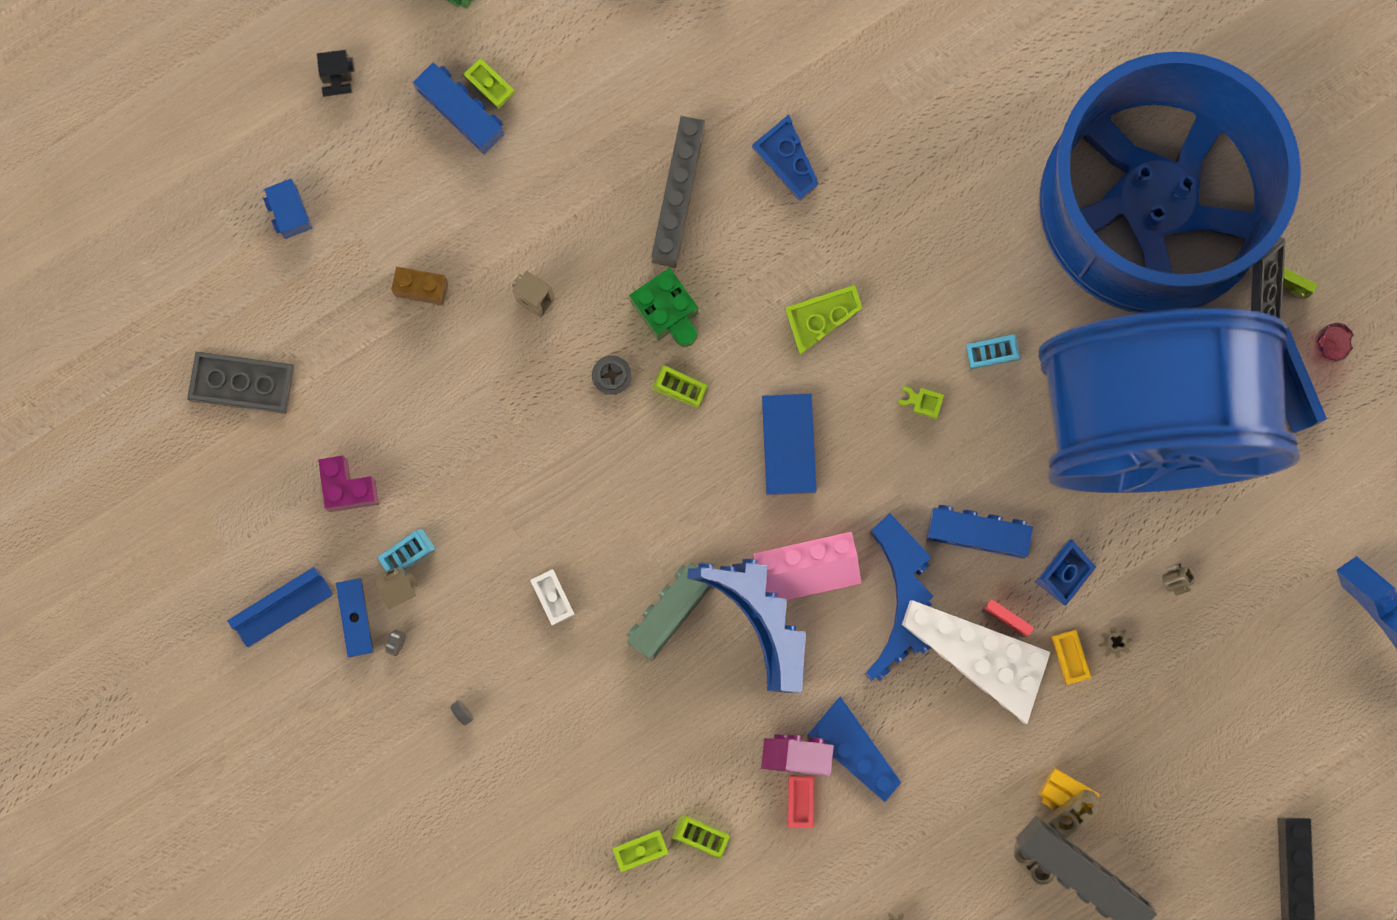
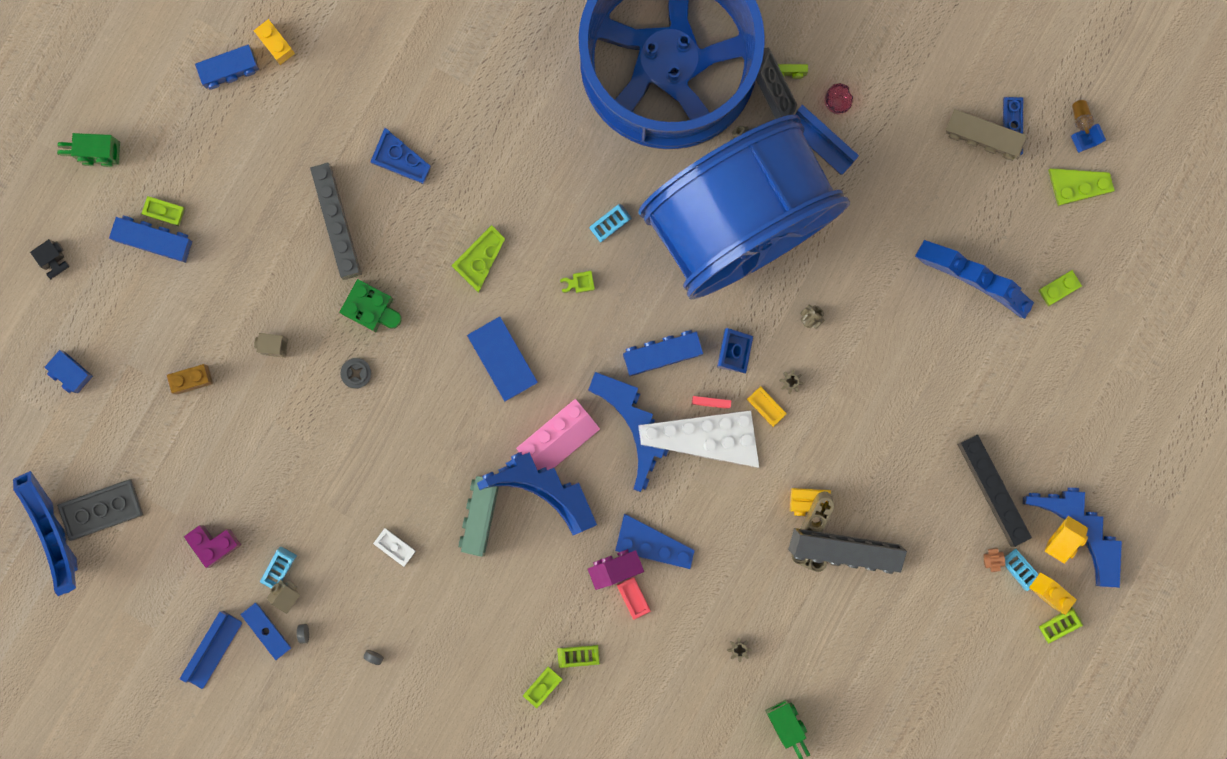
camera: 30 degrees left, 5 degrees up
(171, 377) = (51, 533): none -> blue arch
(666, 390) = (390, 361): lime slope -> none

